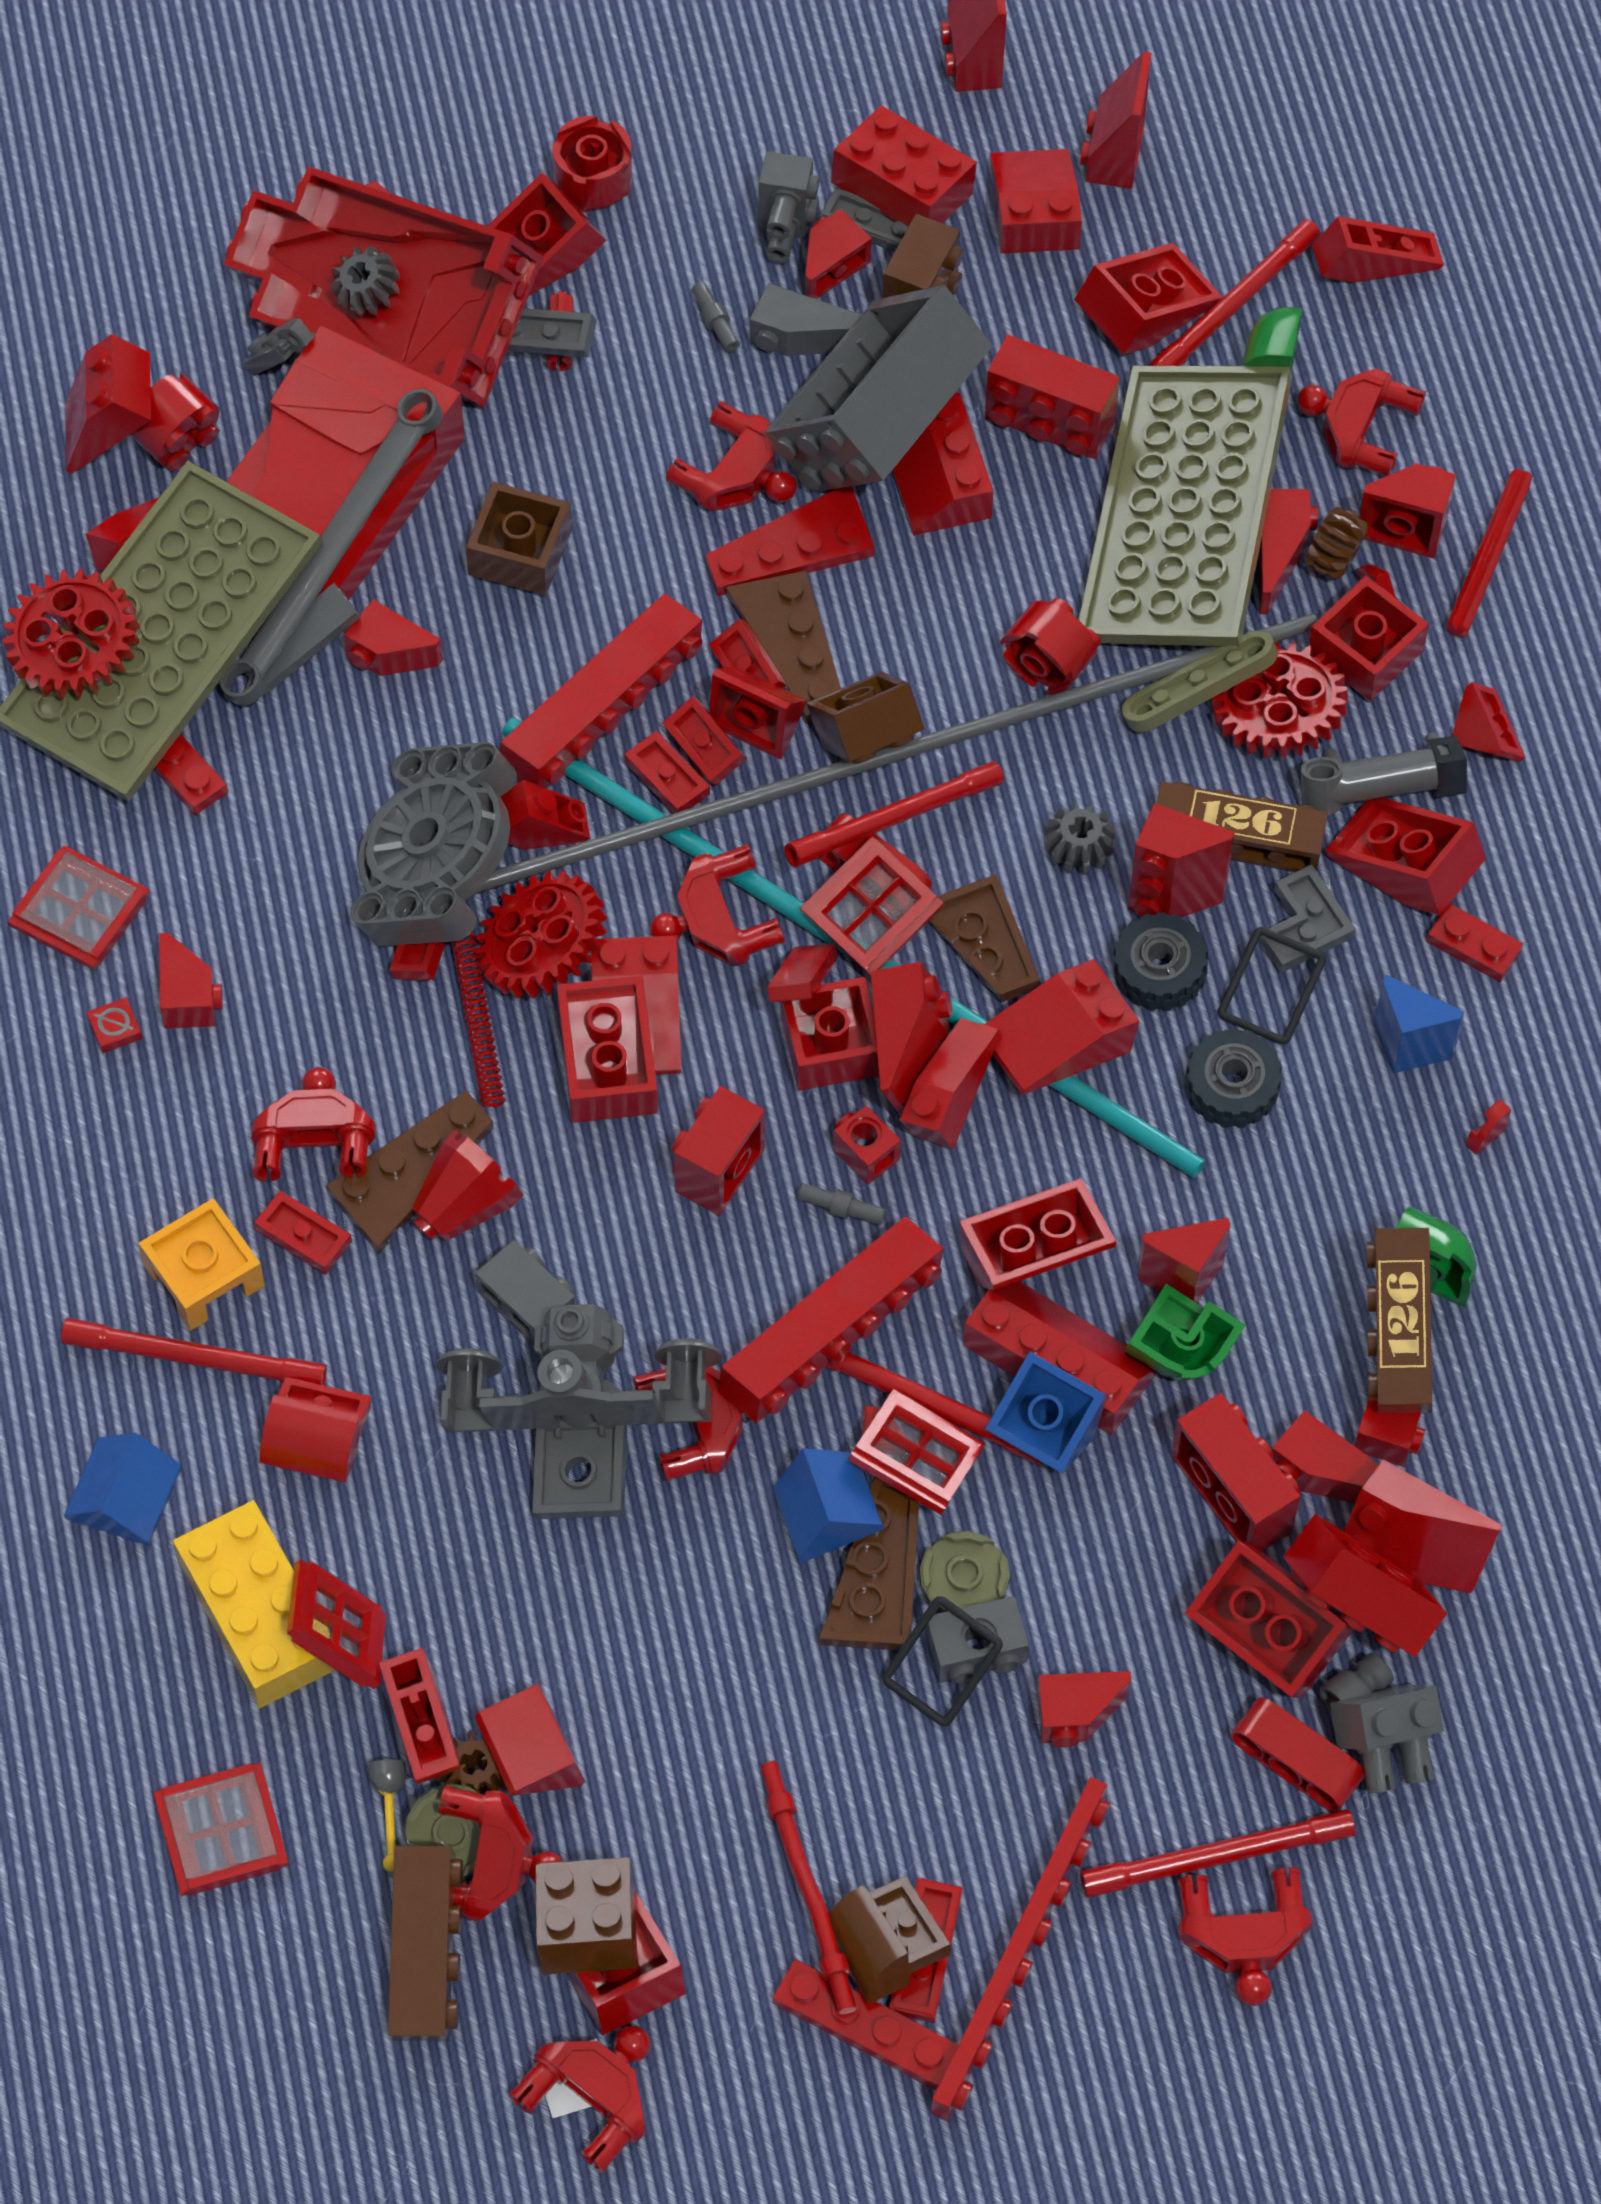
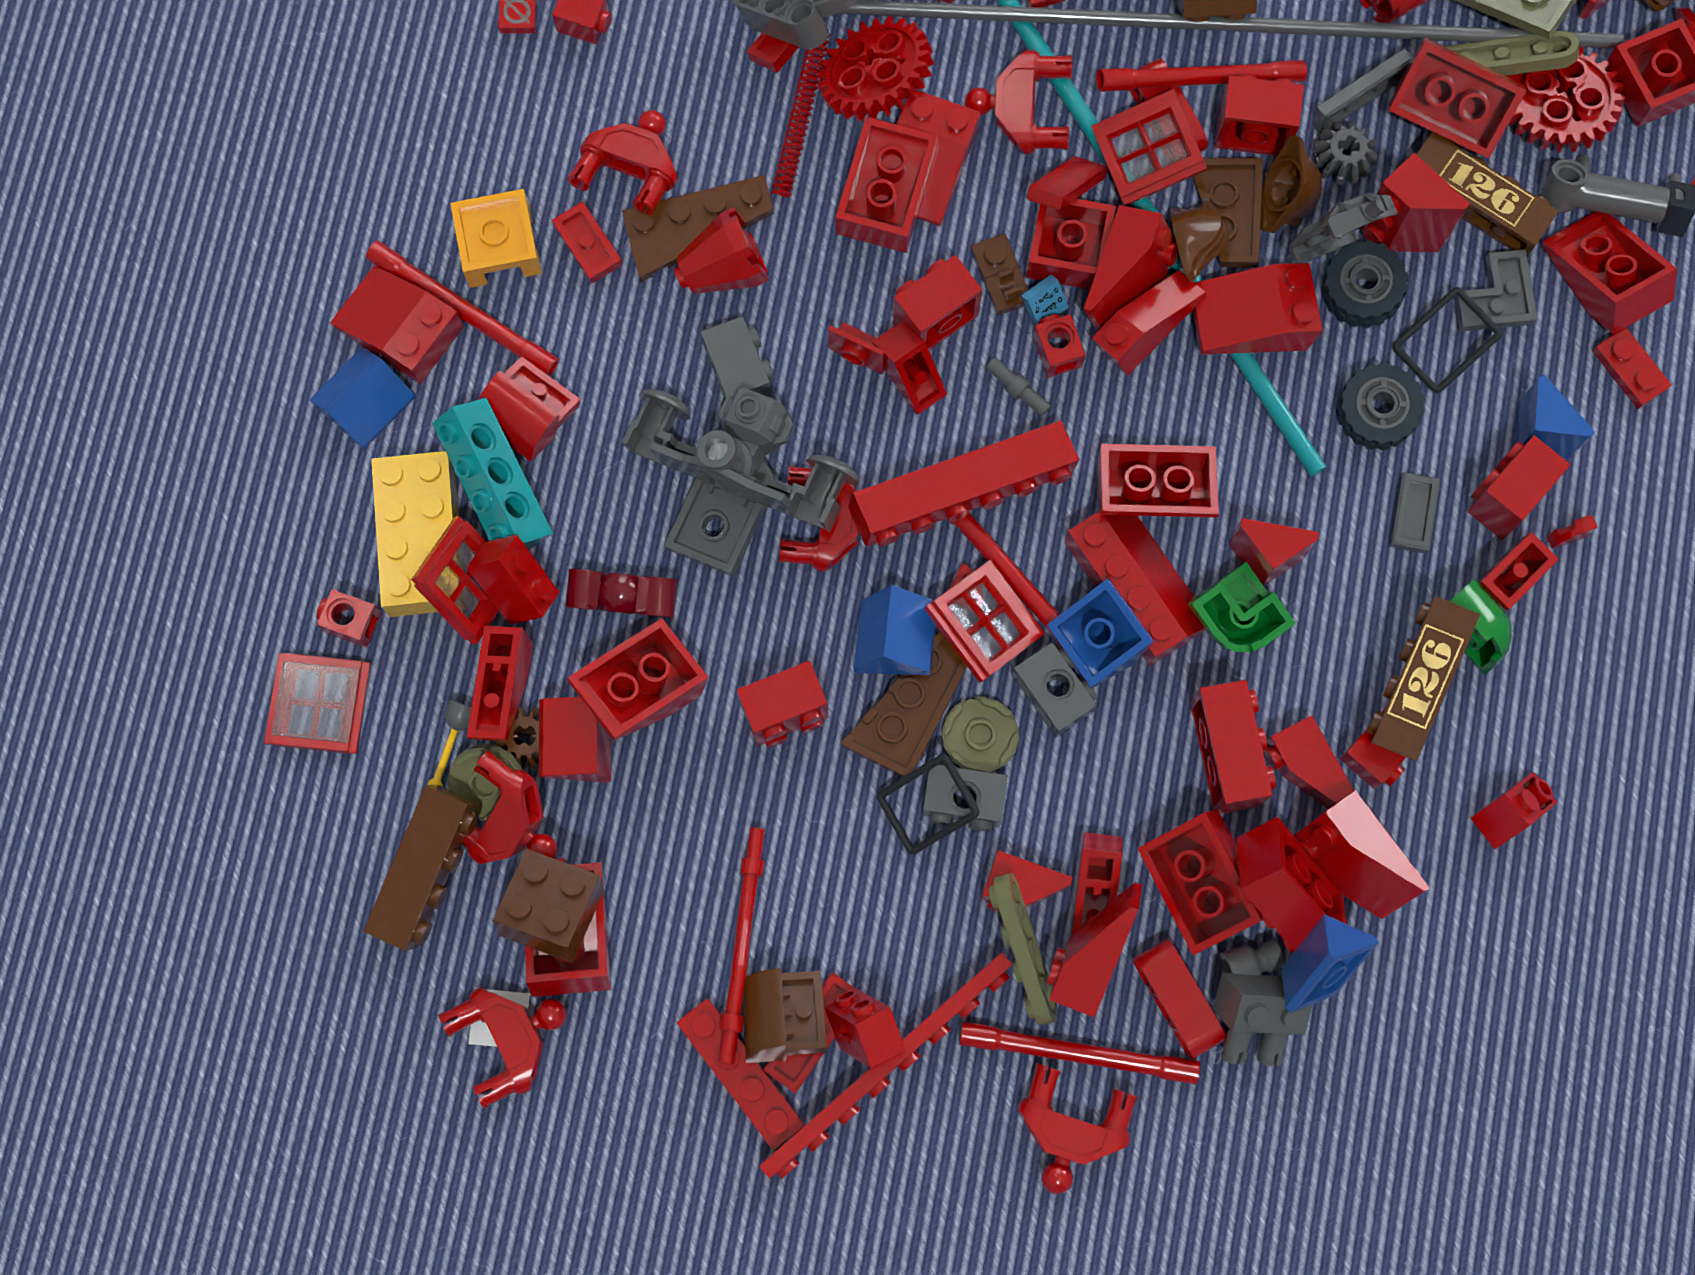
camera: 25 degrees right, 15 degrees up
(129, 1391) = (398, 323): none -> red slope
(230, 1736) = (359, 629): none -> brick
(315, 1510) = (491, 473): none -> teal brick
(389, 1603) = (513, 579): none -> red brick
(510, 1577) = (621, 593): none -> dark red piece
(578, 1650) = (640, 681): none -> red slope
(653, 1228) = (856, 347): none -> red piece
(717, 1224) = (911, 367): none -> red slope
(741, 1619) = (784, 704): none -> red brick
(761, 1084) = (1000, 273): none -> reddish brown plate
(830, 1103) = (1044, 299): none -> dark azure tile
(967, 975) = (1198, 236): none -> reddish brown hat
(973, 832) = (1258, 114): none -> red brick
(980, 1908) = (864, 1028): none -> red brick
(1032, 1516) = (1056, 712): none -> dark grey brick
(1038, 892) = (1290, 187): none -> reddish brown hat
(1069, 769) = (1362, 91): none -> dark grey tile
(1099, 1748) = (1028, 961): none -> olive plate
(1108, 906) = (1340, 226): none -> dark grey plate
(1164, 1687) = (1097, 876): none -> red slope
(1171, 738) = (1456, 97): none -> red brick
(1187, 1738) = (1091, 954): none -> red slope
(1318, 1172) = (1414, 512): none -> dark grey tile
(1409, 1101) = (1516, 486): none -> red brick
(1430, 1639) = (1324, 962): none -> blue slope
(1450, 1181) = (1518, 570): none -> red slope
(1556, 1425) = (1514, 810): none -> red slope

